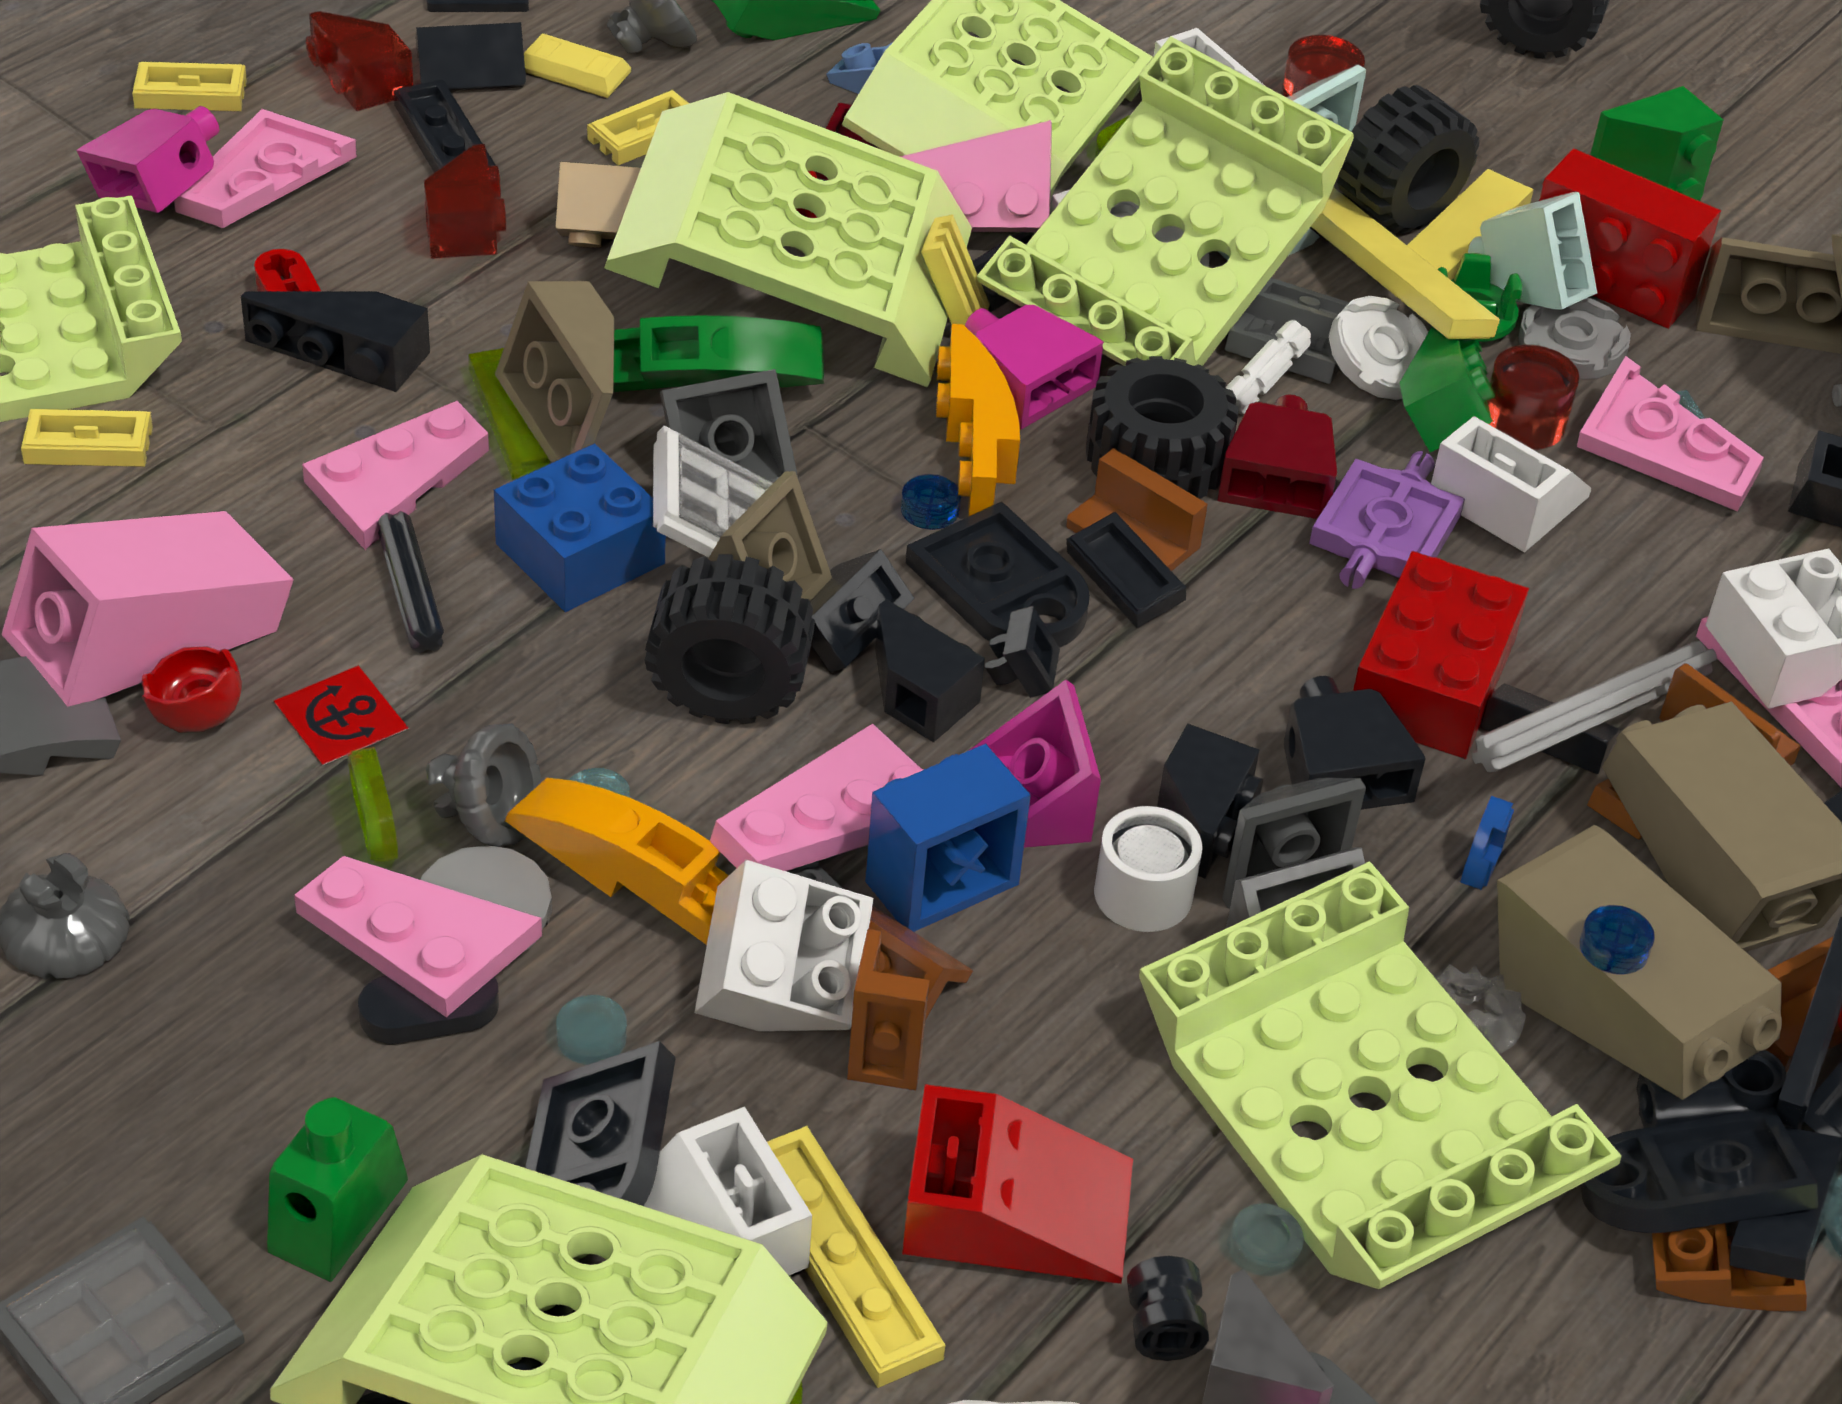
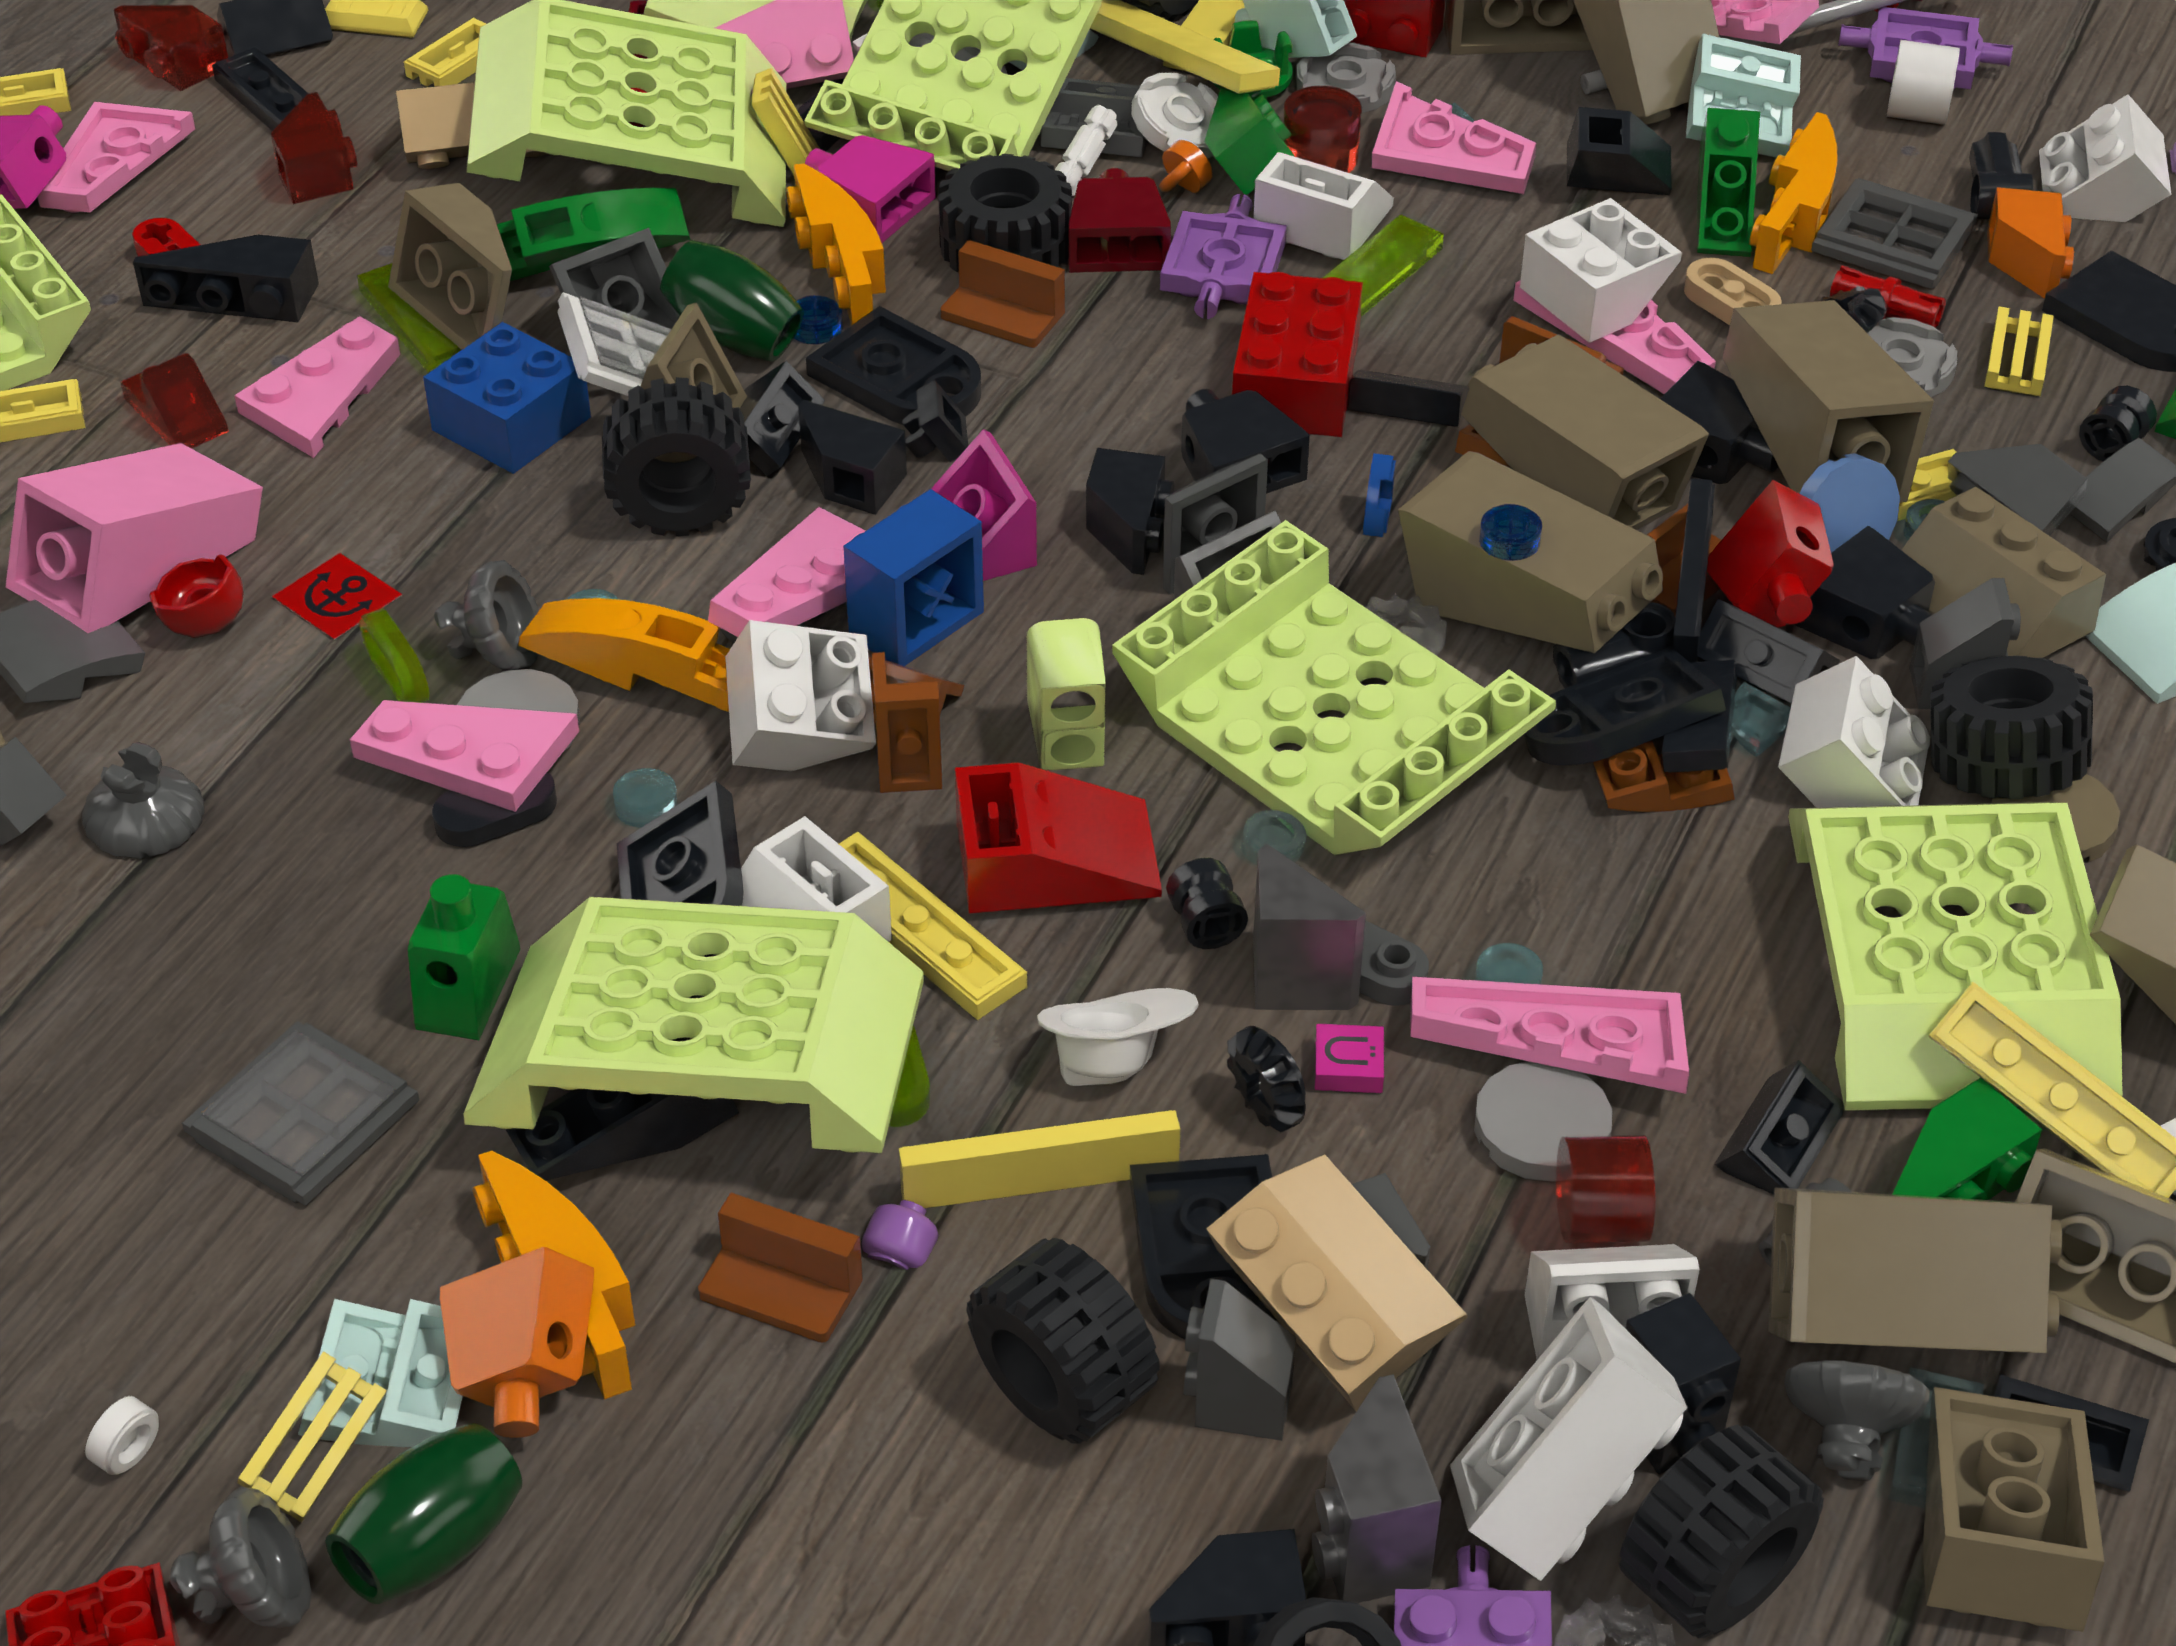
camera: 10 degrees left, 0 degrees up
(241, 461) = (176, 402): none -> clear red slope
(410, 582) = (366, 474): black axle -> none
(844, 466) = (737, 297): none -> dark green piece
(1077, 981) = (1062, 657): none -> yellowish green piece
(1126, 569) = (1005, 340): black tile -> none
(1147, 868) = (1094, 570): white piece -> none
(1372, 406) = (1185, 167): none -> orange tile
(1565, 559) = (1389, 258): none -> clear neon green tile
(1587, 708) = (1434, 370): light grey axle -> none

